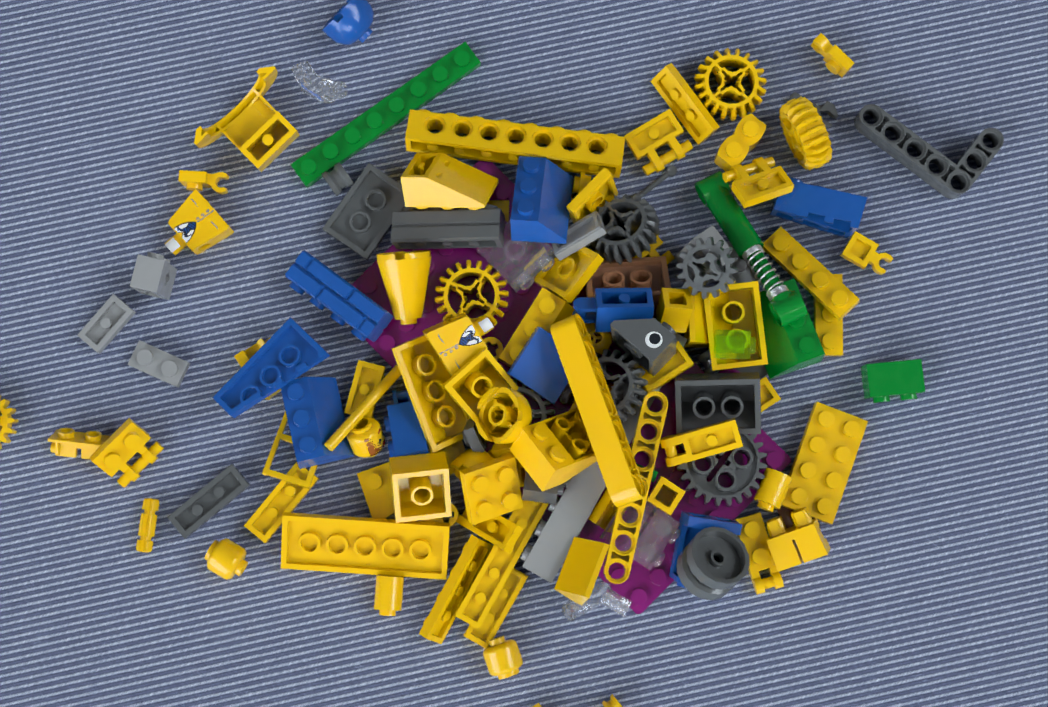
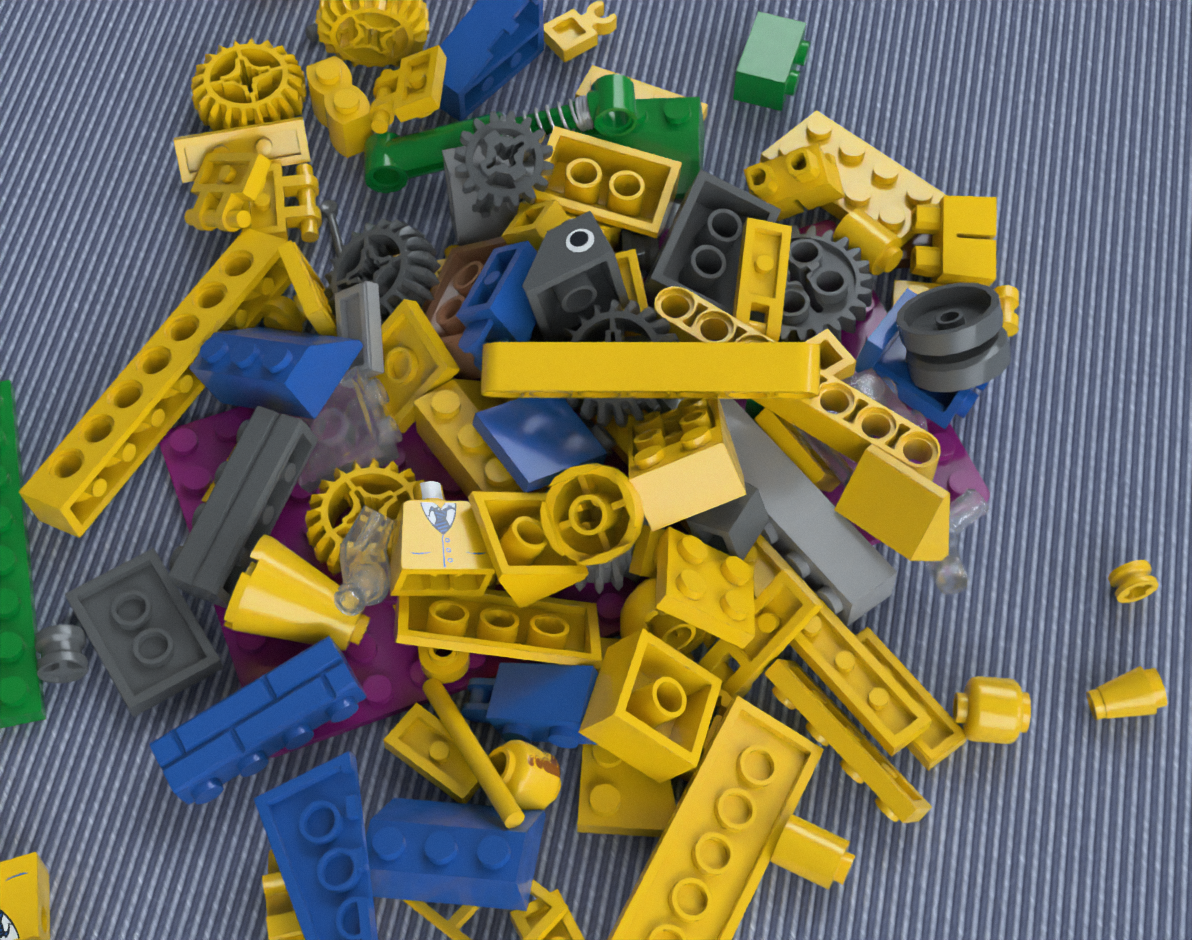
camera: 70 degrees left, 25 degrees down
(432, 310) = (364, 563): none -> clear arm
(445, 183) = (160, 489): yellow slope -> none
(473, 438) = (601, 596): dark grey plate -> none
(652, 115) = (222, 188): none -> yellow plate
(733, 344) = (632, 181): clear neon green brick -> none
(793, 431) = (796, 180): none -> yellow hips
(810, 273) = (627, 61): yellow plate -> none

